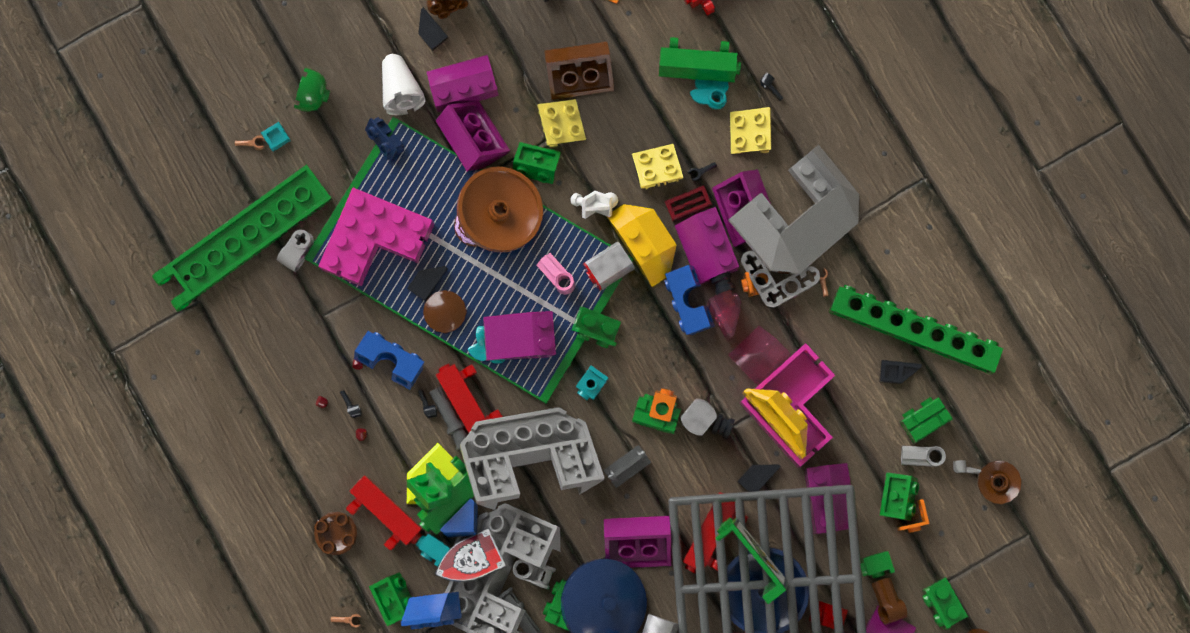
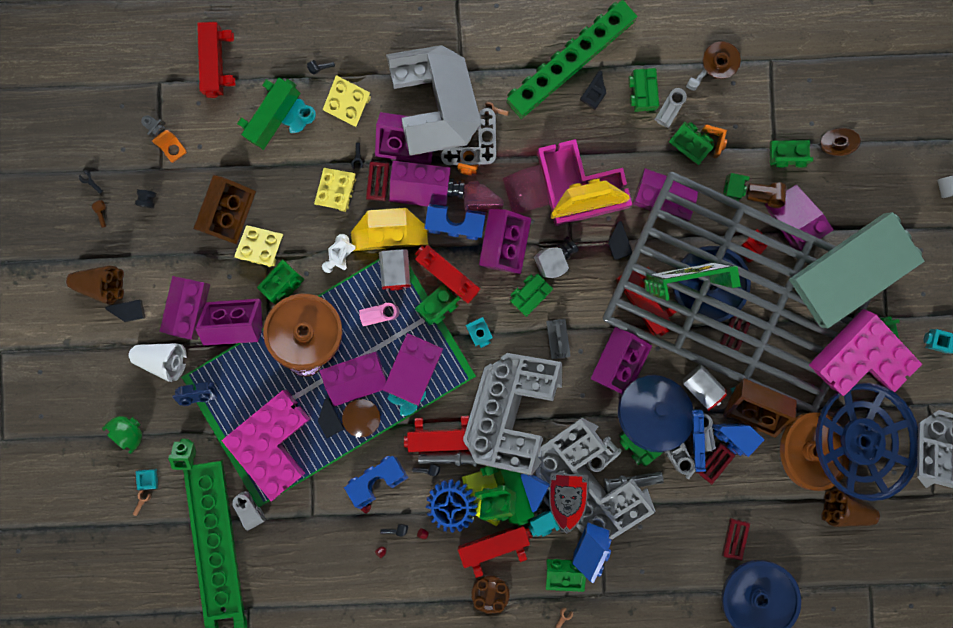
camera: 70 degrees left, 5 degrees up
(322, 156) = (182, 455): none -> green brick
(413, 442) = (451, 520): none -> blue gear
(480, 283) = (354, 378): none -> magenta slope
(632, 320) = (447, 273): none -> red brick
(663, 396) = (520, 281): orange bracket -> none
(696, 361) = (505, 241): none -> magenta slope

